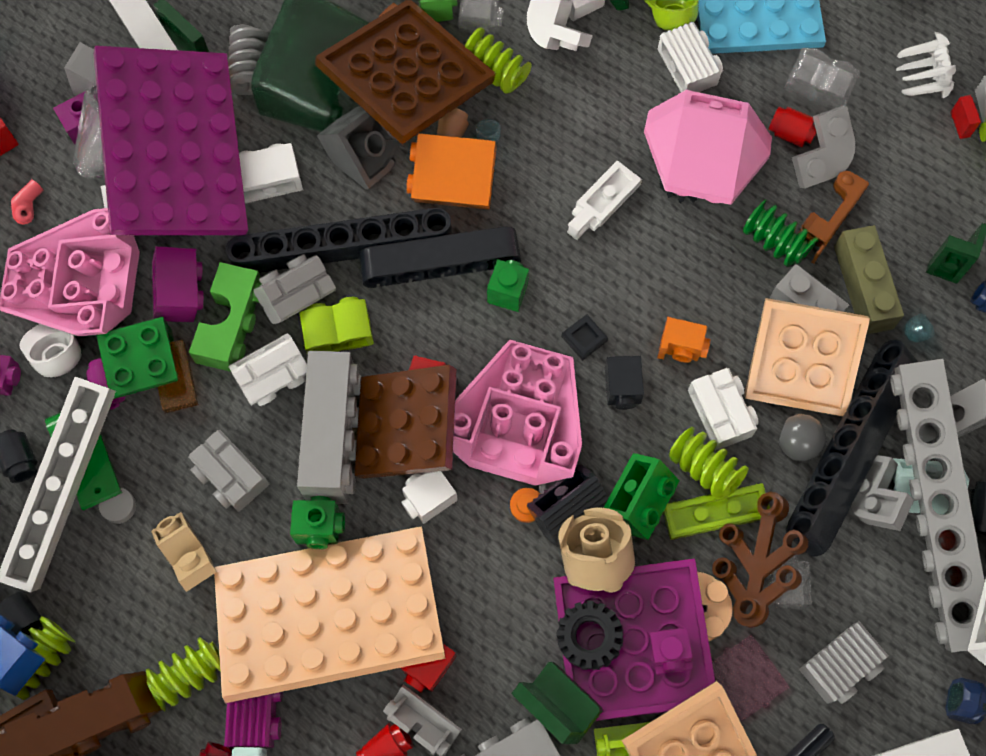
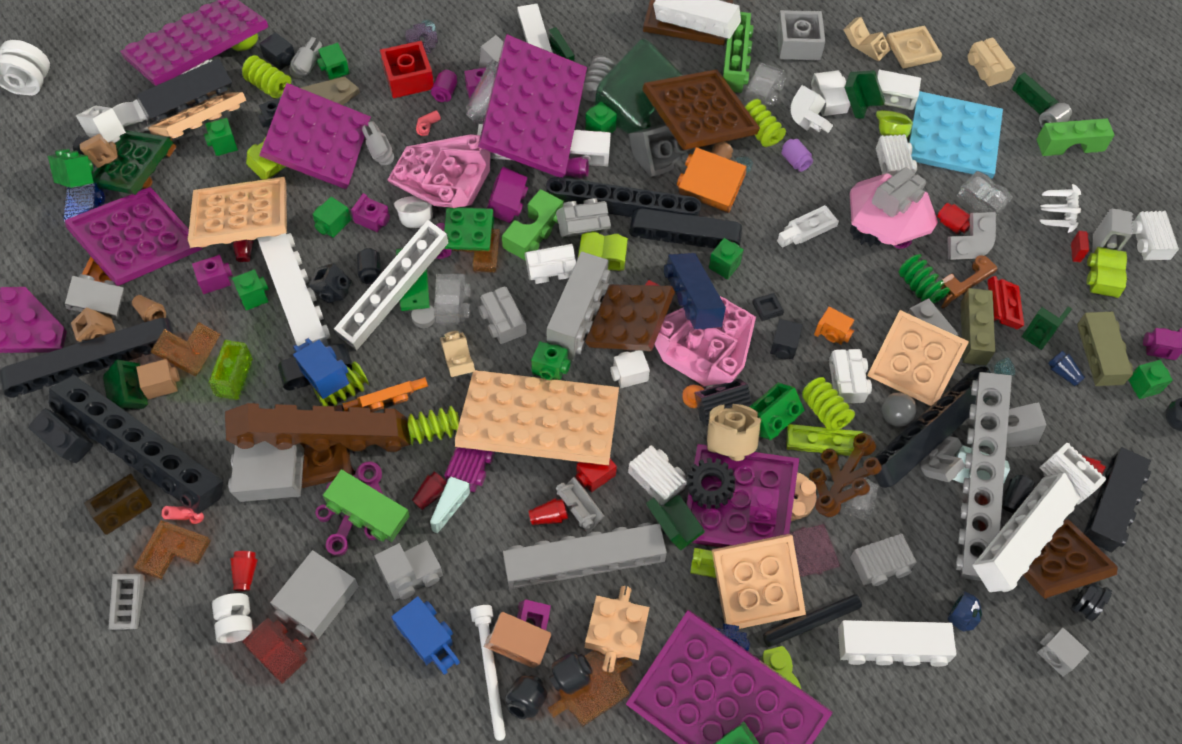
camera: 15 degrees right, 10 degrees down
(32, 137) = (444, 86): none -> magenta brick
(117, 648) = (397, 394): none -> orange plate
(148, 471) = (450, 300): none -> clear brick
(261, 208) = (577, 167): none -> magenta cone
(270, 124) = (600, 119): none -> green brick
(481, 354) = (695, 291): none -> dark blue brick
(513, 641) = (657, 475): none -> white brick
(556, 94) = (797, 154): none -> medium lavender brick
(715, 121) = (899, 192): none -> light grey brick
(895, 231) = (1006, 302): none -> red plate

